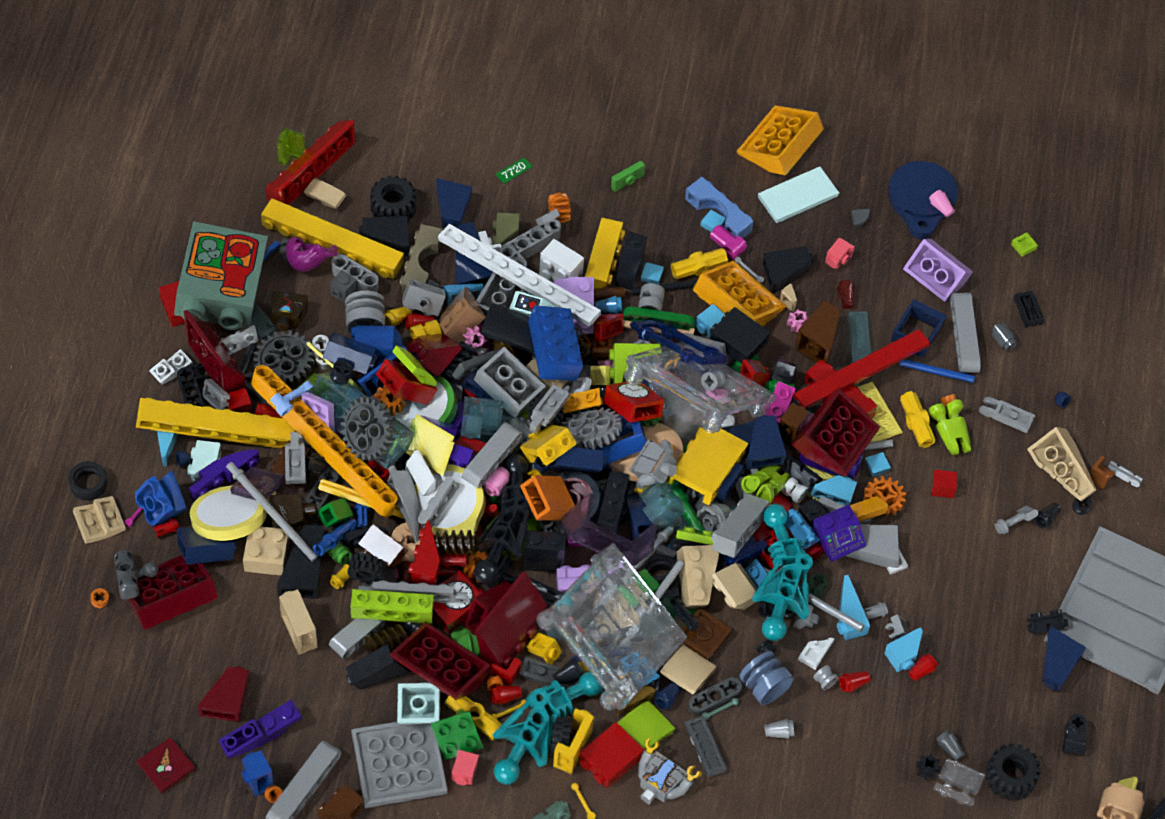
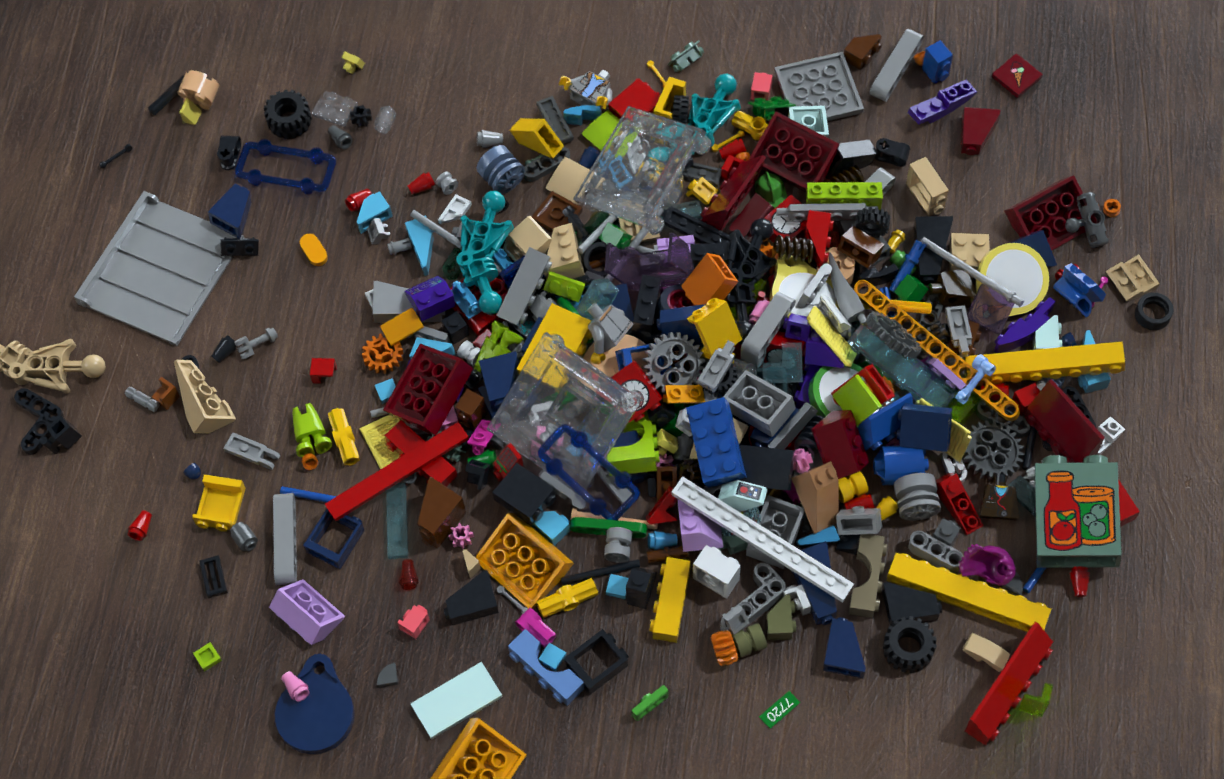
camera: 175 degrees left, 5 degrees up
(326, 316) = (958, 502): none -> red slope
(327, 676) = (893, 152): none -> black piece
(341, 372) = (927, 394): black wheel -> none
(531, 213) = (750, 639): none -> olive wheel
(680, 749) = (577, 114): none -> dark azure slope
(686, 199) = (589, 684): none -> black window
(727, 717) = (537, 136): none -> yellow slope
(900, 761) = (385, 119): none -> clear brick
(967, 617) = (313, 249): none -> light orange tile
(975, 723) = (265, 148): none -> clear blue bar
(1032, 367) = (219, 503): none -> yellow panel
(1105, 351) = (139, 527): none -> red cone

